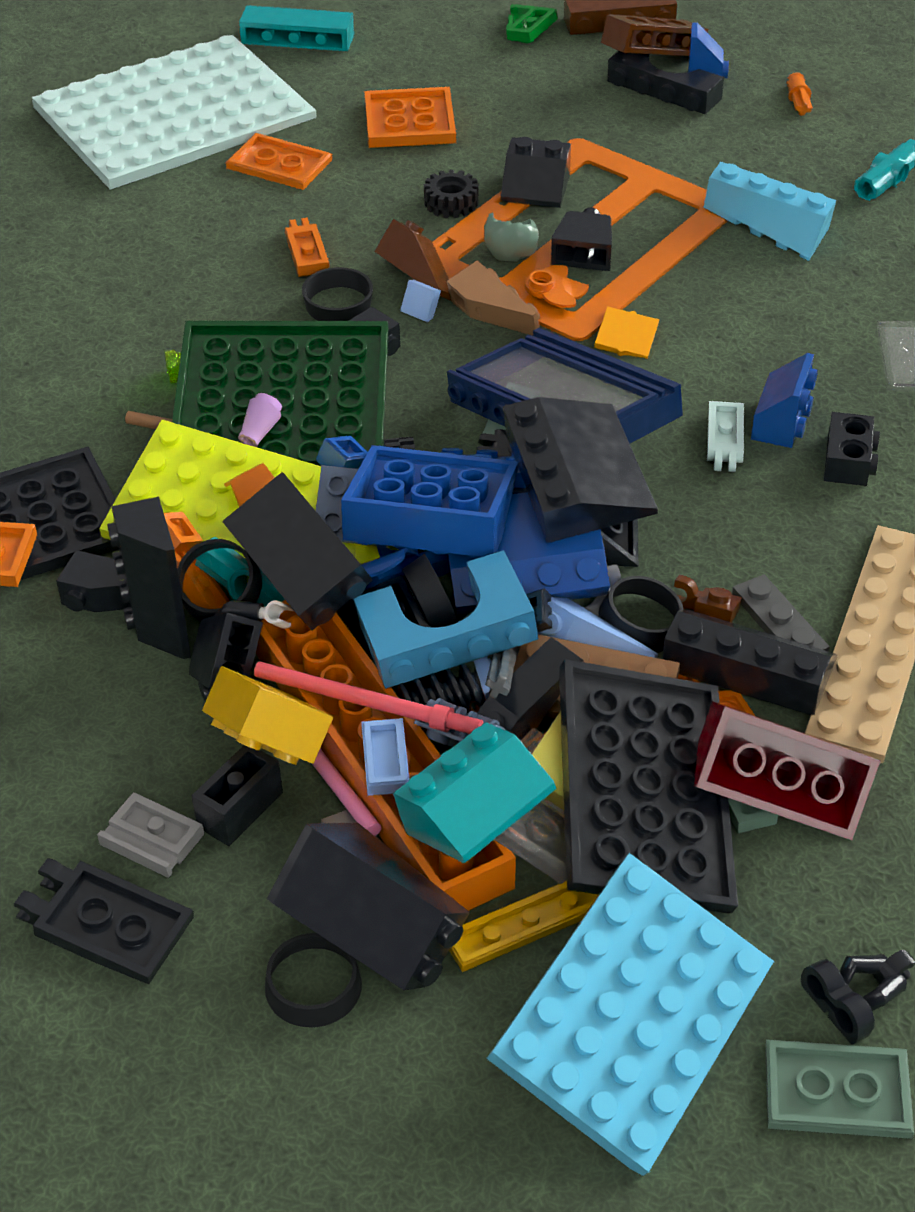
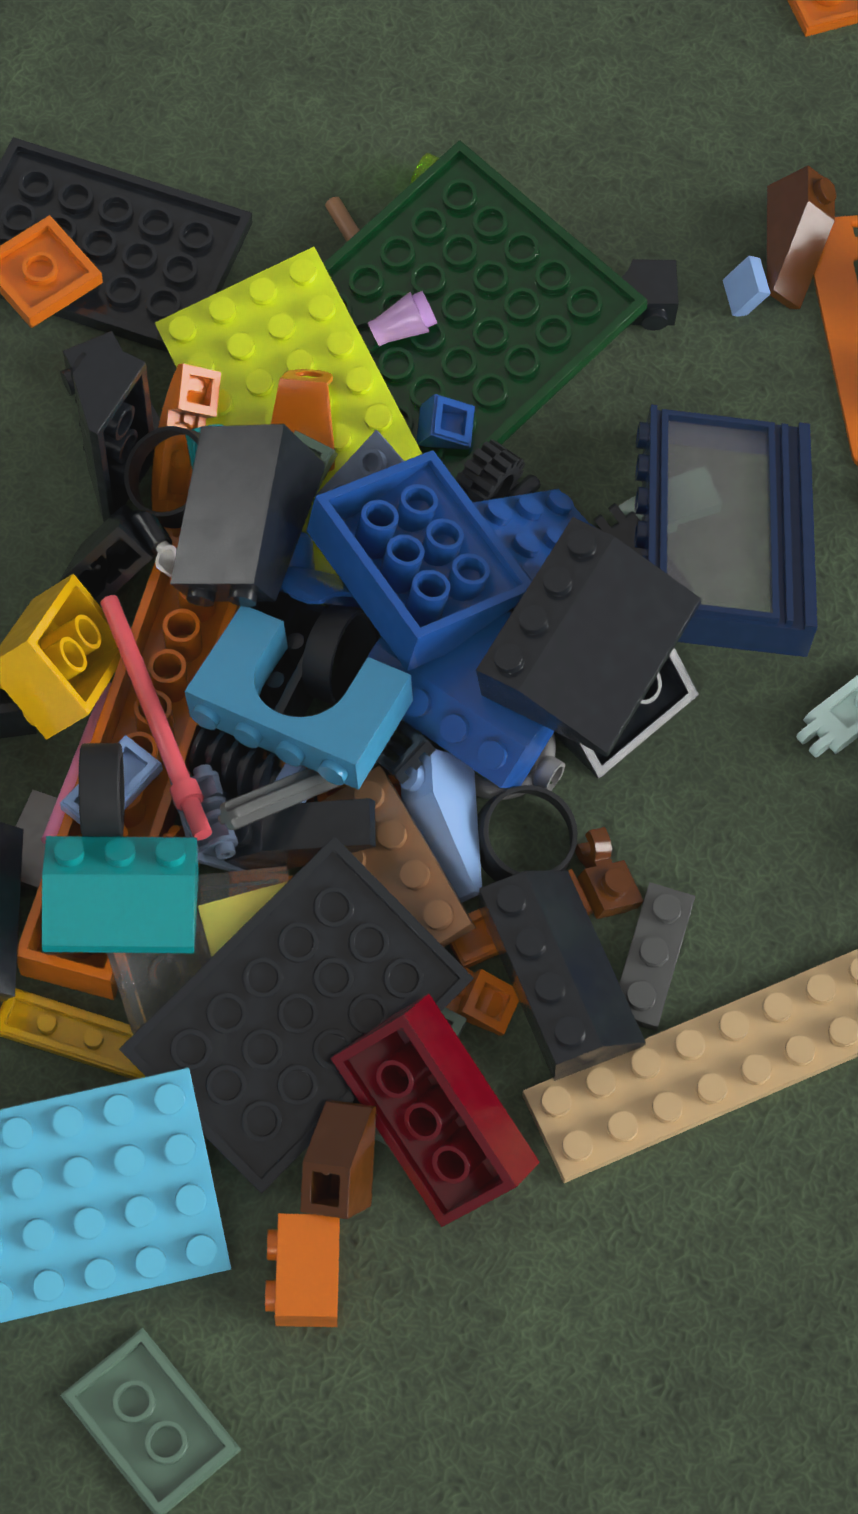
camera: 40 degrees right, 20 degrees up
(306, 247) = (715, 122): orange hinge -> none
(334, 278) = (676, 179): black tyre -> none
(398, 739) = (101, 790): none -> black tyre
(488, 299) = (810, 337): medium nougat slope -> none
(766, 838) = (340, 1161): none -> reddish brown slope
(817, 918) = (305, 1270): none -> orange brick
(846, 1008) = (244, 1340): black piece -> none

